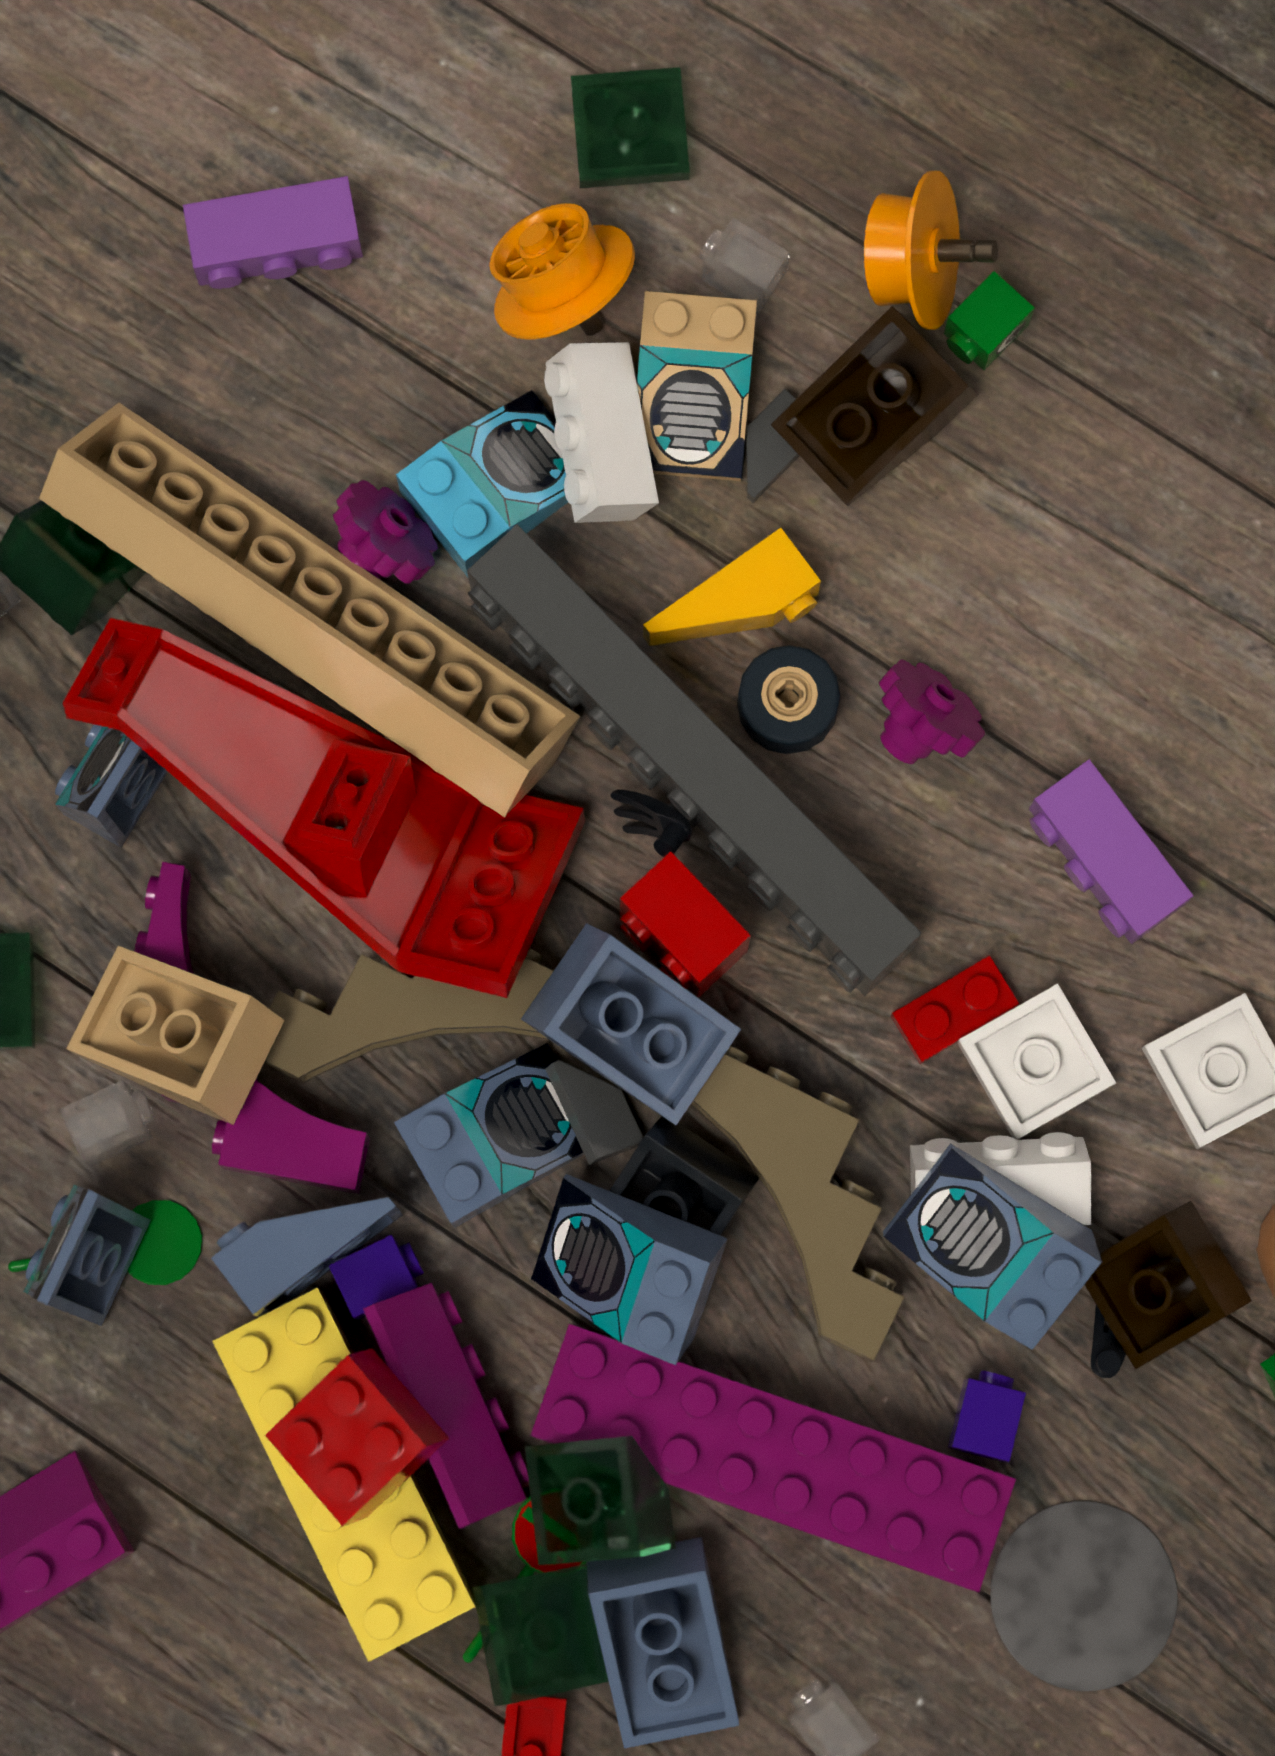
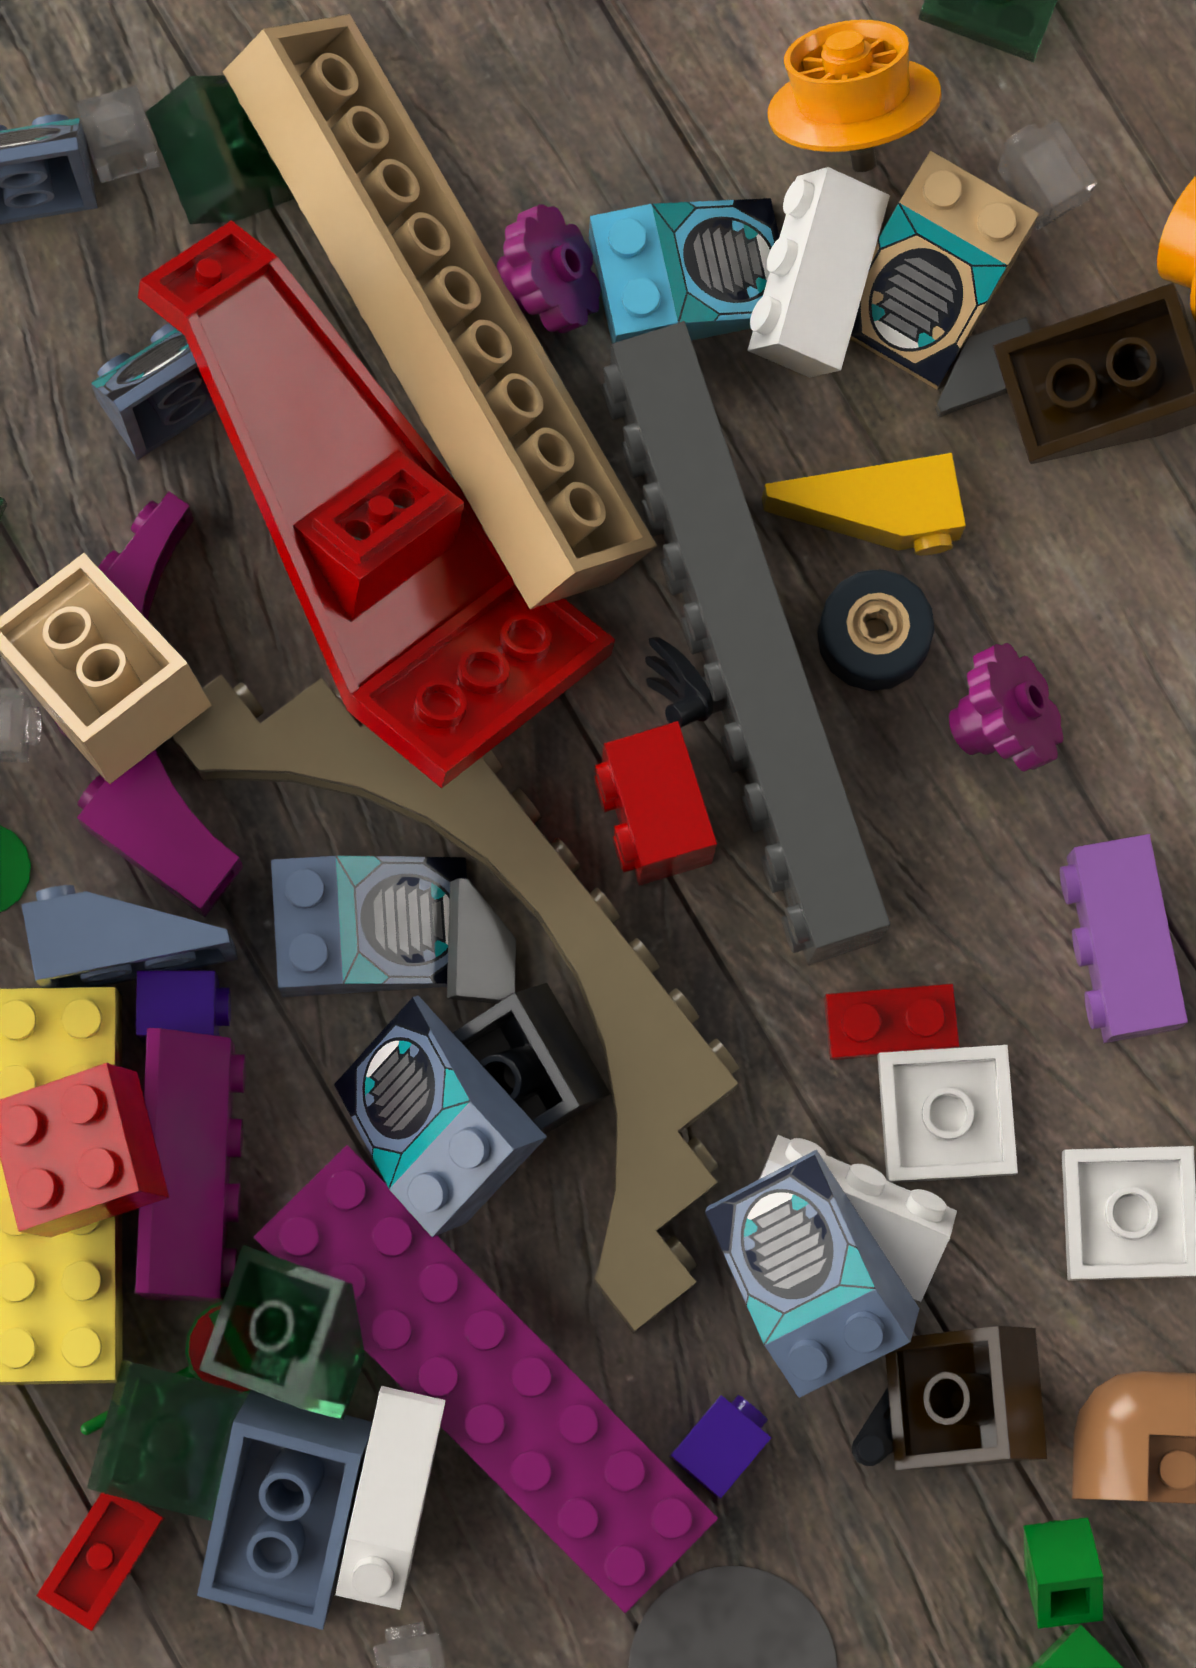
camera: 20 degrees right, 0 degrees up
(631, 1023) = (555, 875): sand blue slope -> none
(745, 1592) = (390, 1498): none -> white slope

